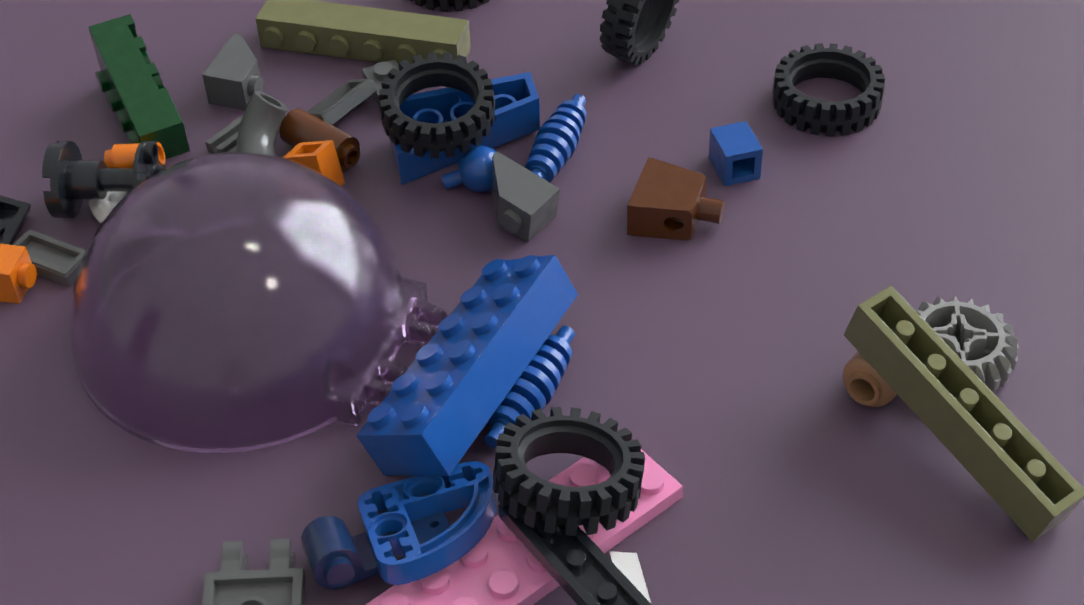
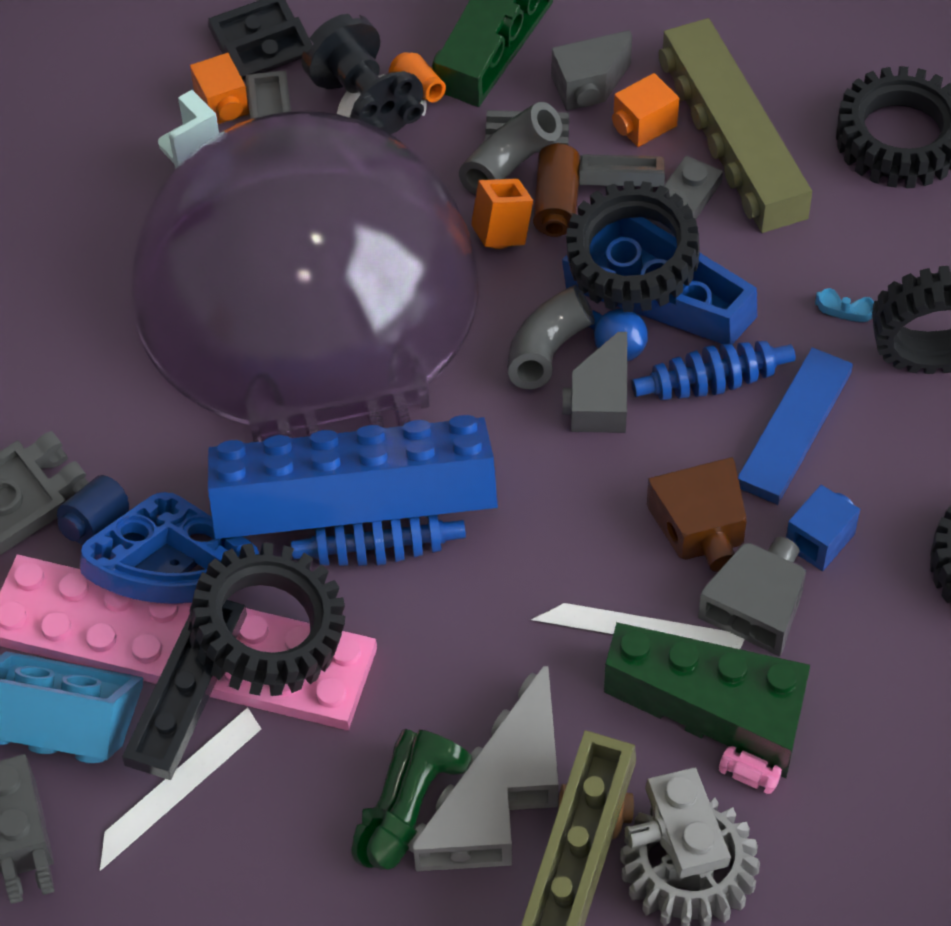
camera: 55 degrees right, 10 degrees up
(41, 299) = (197, 127): none -> light aqua panel
(302, 66) = (645, 110): none -> orange brick
(439, 207) = (543, 334): none -> dark grey cylinder
(569, 61) = (831, 304): none -> dark azure piece
(631, 125) = (794, 425): none -> blue tile
(729, 287) = (605, 622): none -> white sticker
(751, 454) = (391, 824): none -> dark green piece
(765, 209) = (756, 594): none -> dark grey torso
(810, 412) = (508, 774): none -> light grey slope
(825, 266) = (710, 689): none -> dark green wedge
(901, 282) = (750, 769): none -> bright pink piece
(951, 319) = (682, 824): none -> light grey plate

